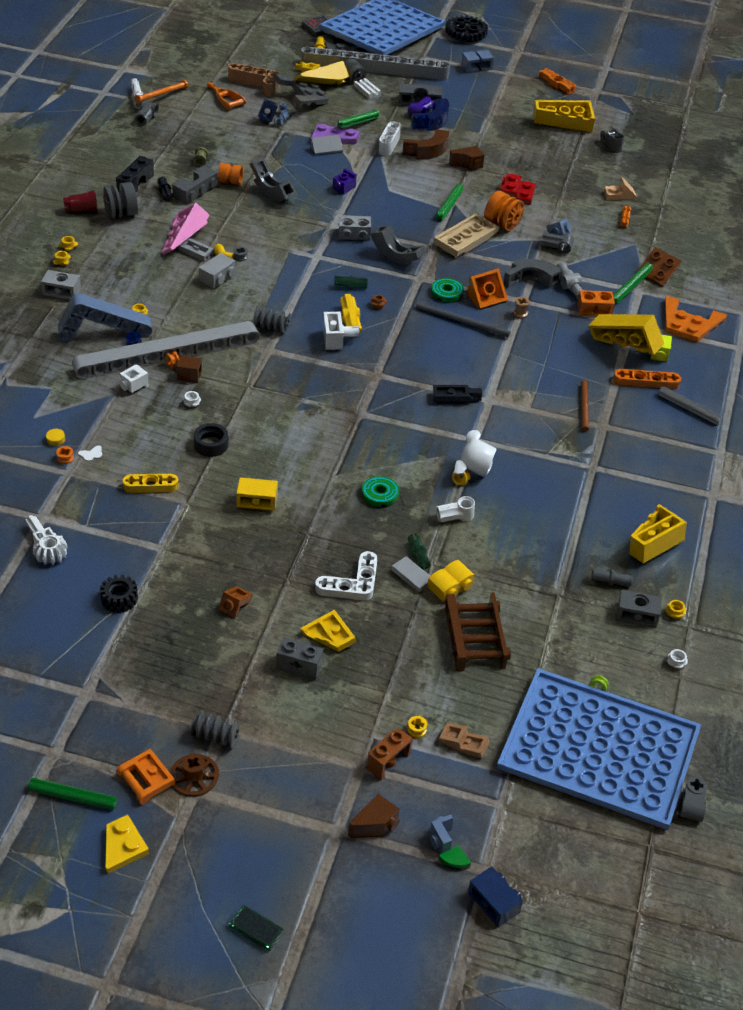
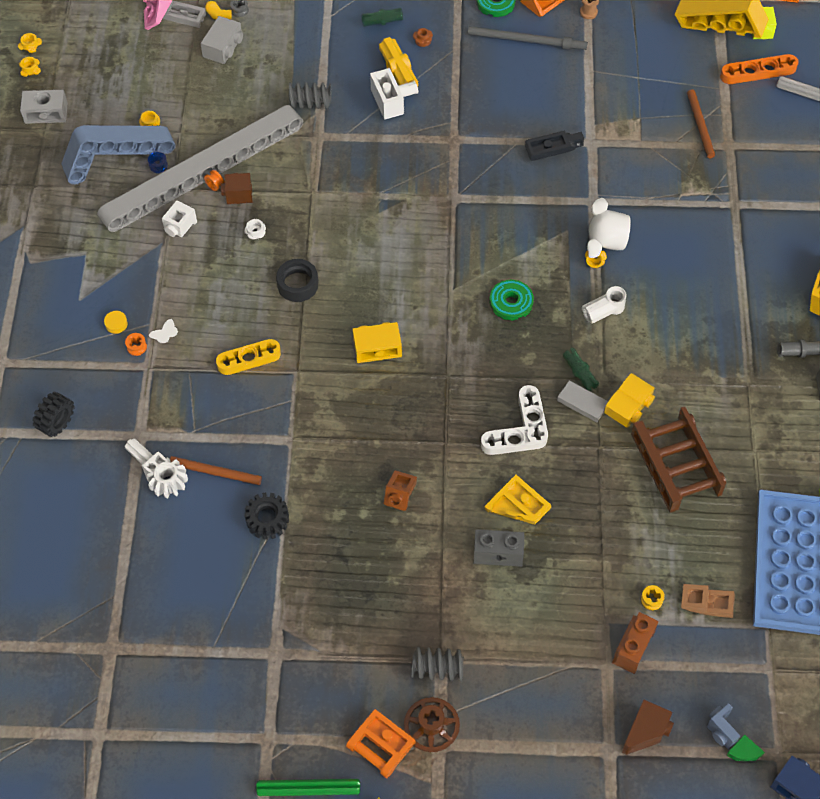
camera: 10 degrees left, 15 degrees up
(95, 556) = (219, 471): none -> dark orange bar

